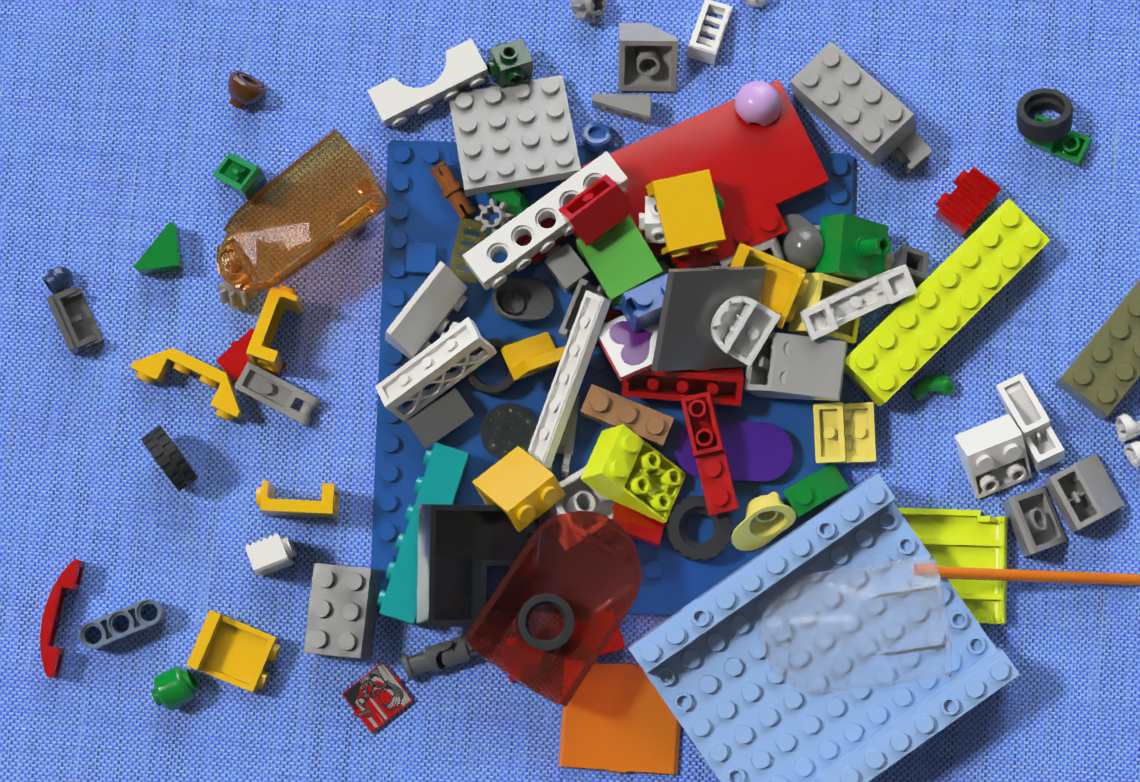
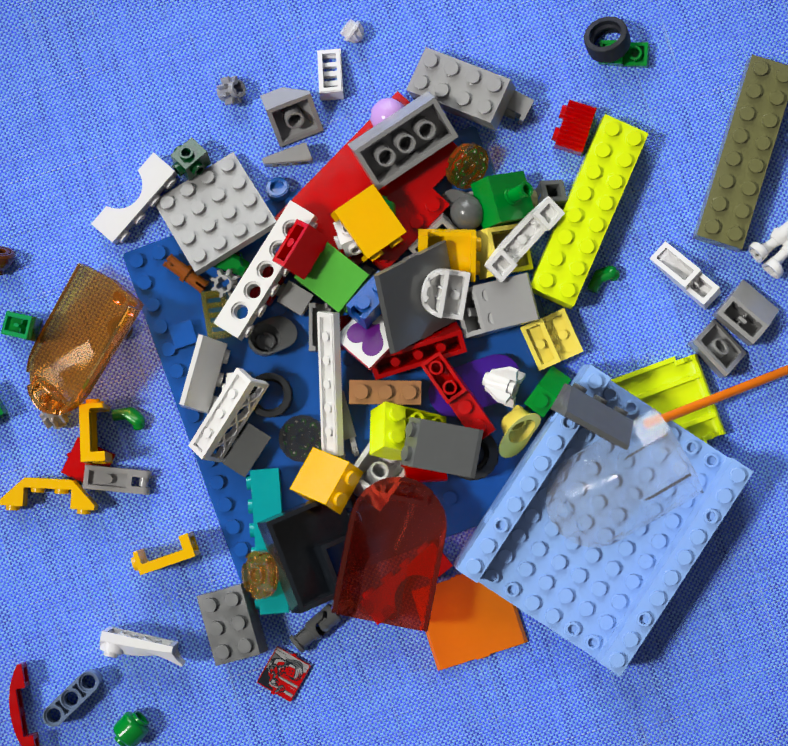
camera: 20 degrees left, 5 degrees up
(169, 458) = (56, 561): black tyre -> none
(200, 580) = (120, 641): none -> white slope
(234, 652) = (163, 684): yellow panel -> none
(271, 554) = (161, 602): white brick -> none
(323, 327) = (131, 415): none -> green arm
(398, 565) = (260, 574): none -> clear orange tile
(531, 355) = (295, 375): yellow panel -> none
(566, 633) = (382, 590): black tyre -> none
(667, 501) = (441, 447): none -> dark grey slope
(763, 134) = (403, 140): none -> light grey brick
(768, 460) = (503, 384): none -> white brick
(825, 193) = (467, 165): none -> clear orange tile
(859, 531) = (594, 415): none -> dark grey slope
(993, 456) = (668, 312): white slope -> none

